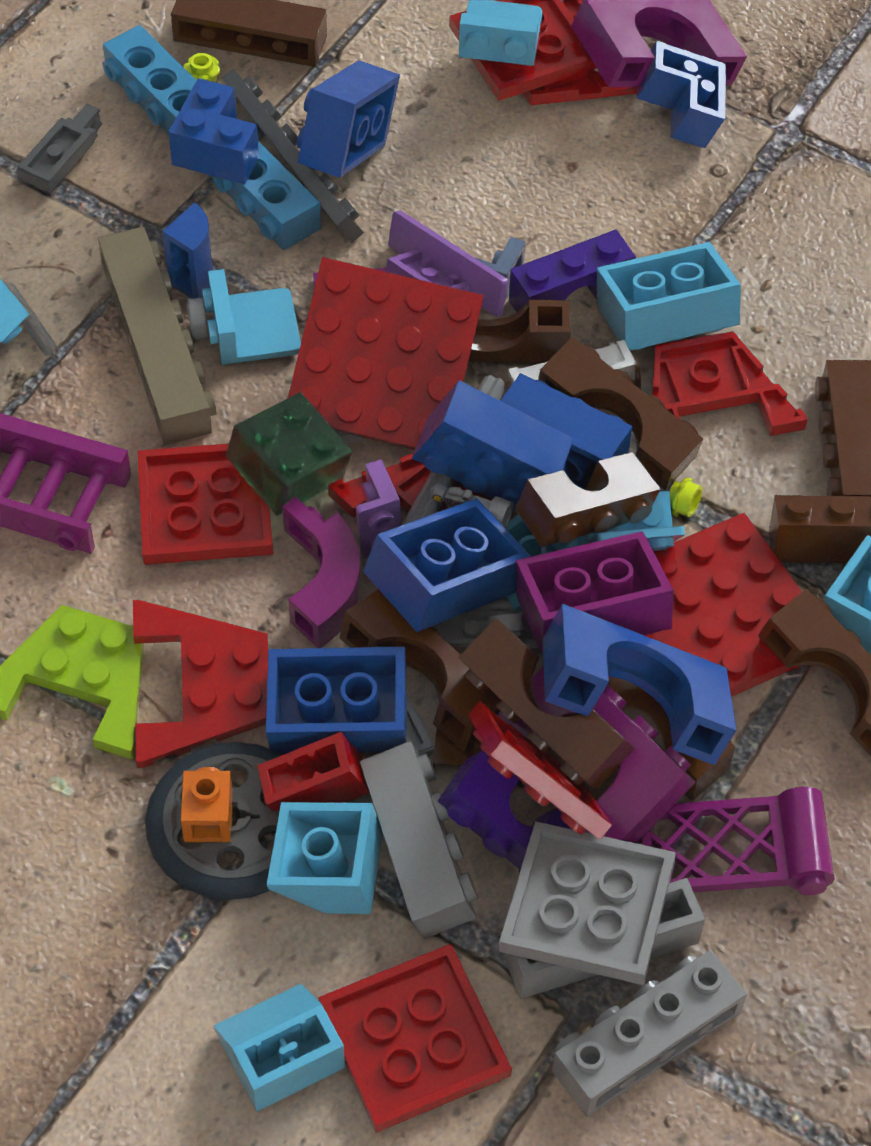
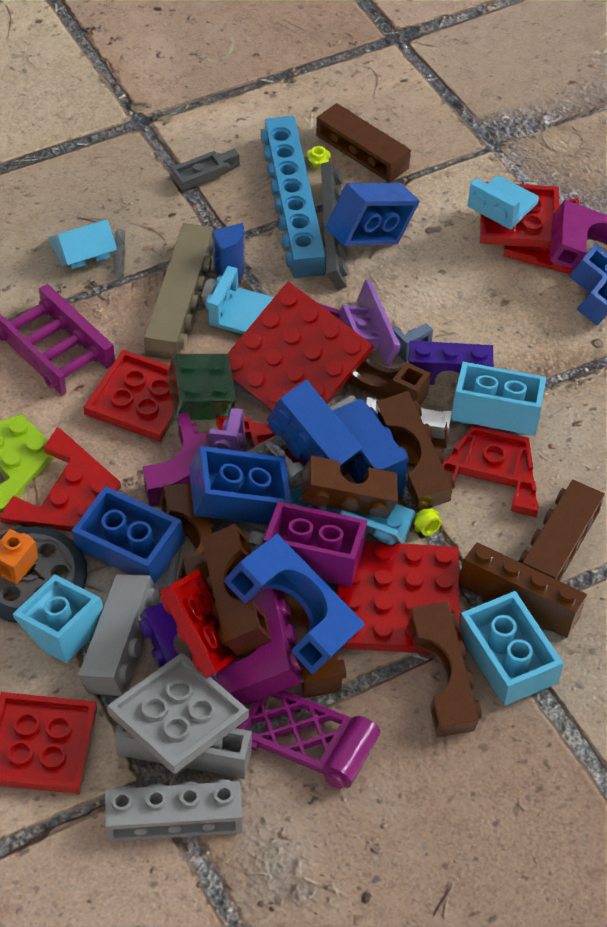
camera: 30 degrees right, 5 degrees down
(211, 137) = (285, 190): blue brick -> none
(315, 774) = (87, 568): red arch -> none

